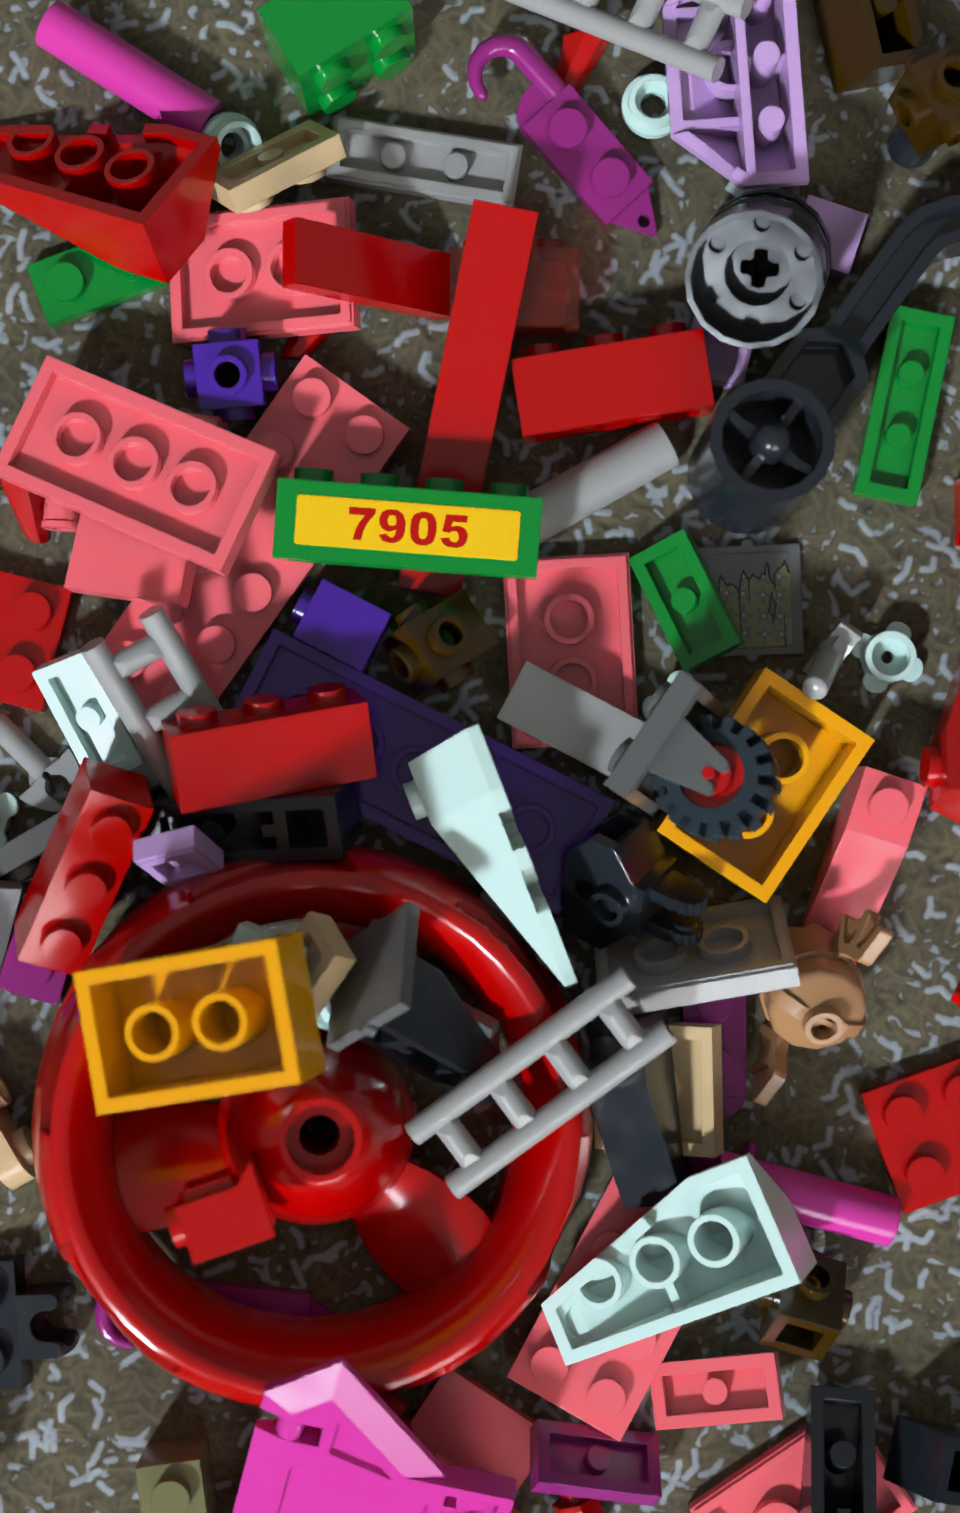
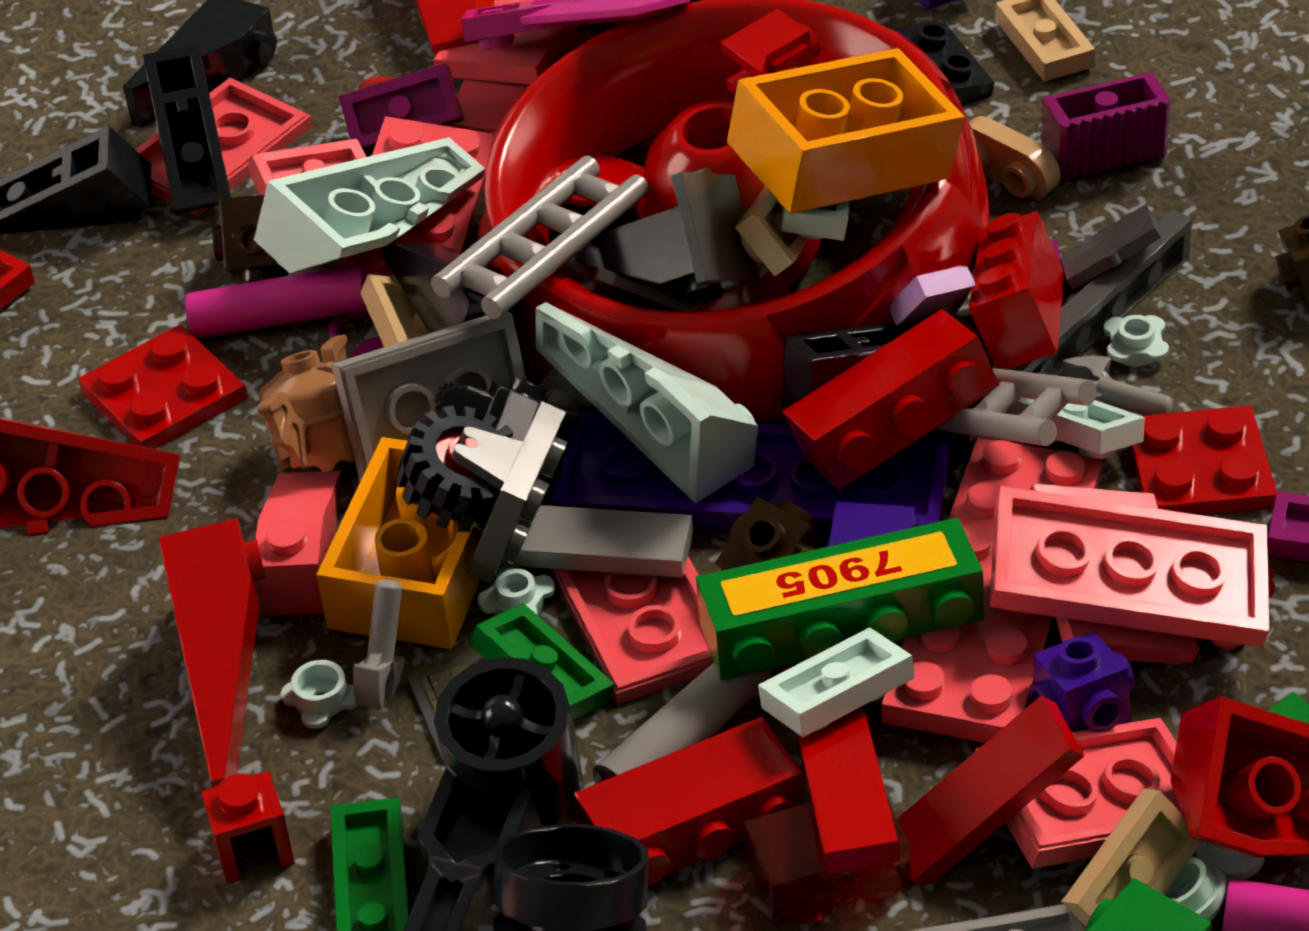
camera: 165 degrees right, 45 degrees down
(450, 422) = (836, 682): none -> light aqua plate

